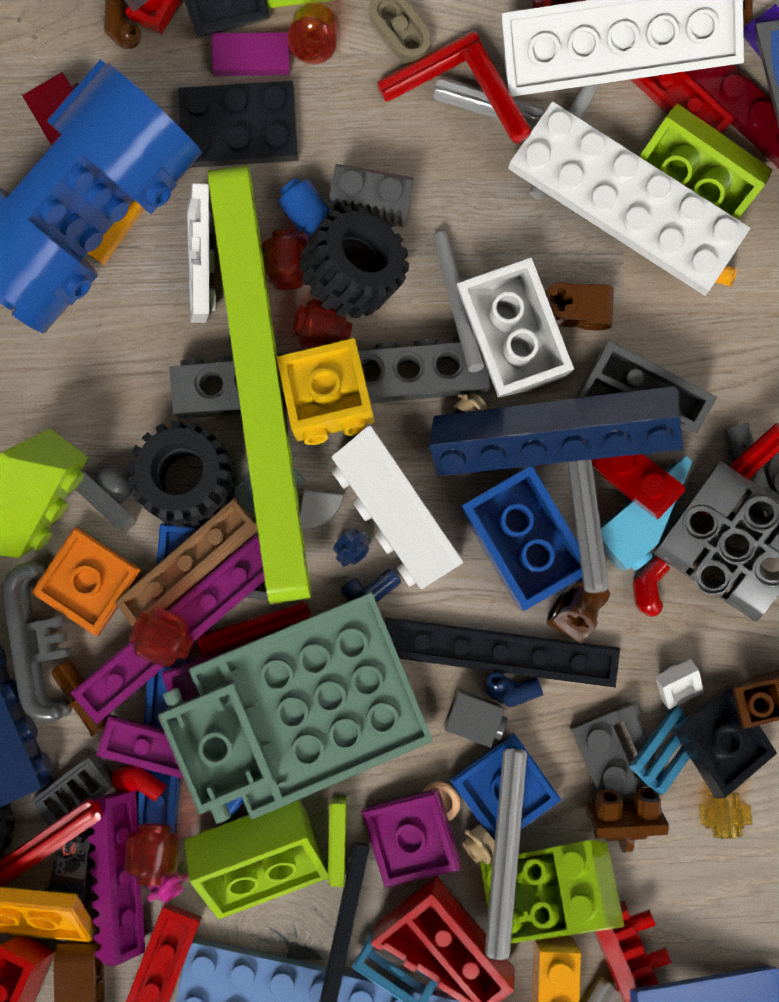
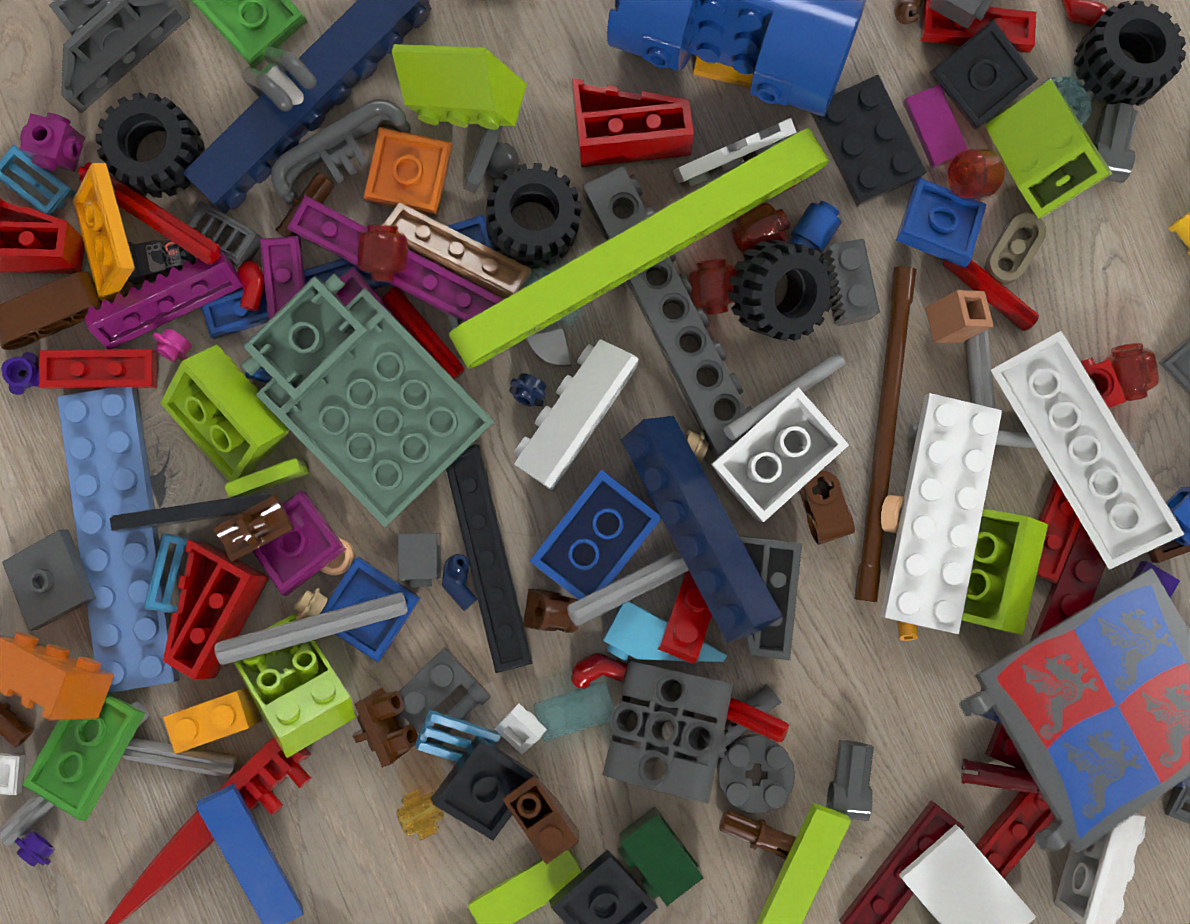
camera: 65 degrees right, 0 degrees up
(131, 346) = (629, 126): none -> red wedge
(151, 853) = (194, 320): clear red head -> none
(325, 391) = (654, 309): yellow plate -> none
(347, 86) = (941, 222): none -> blue plate
(379, 587) = (501, 427): dark blue arm -> none
(385, 872) = (254, 528): none -> reddish brown hips
(407, 155) = (901, 299): none -> reddish brown piece
(446, 105) = (959, 316): none -> nougat brick
(497, 93) = (988, 357): red axle -> none
(609, 245) = (891, 513): none -> light nougat tile
(681, 624) = (574, 711): none -> clear light blue plate

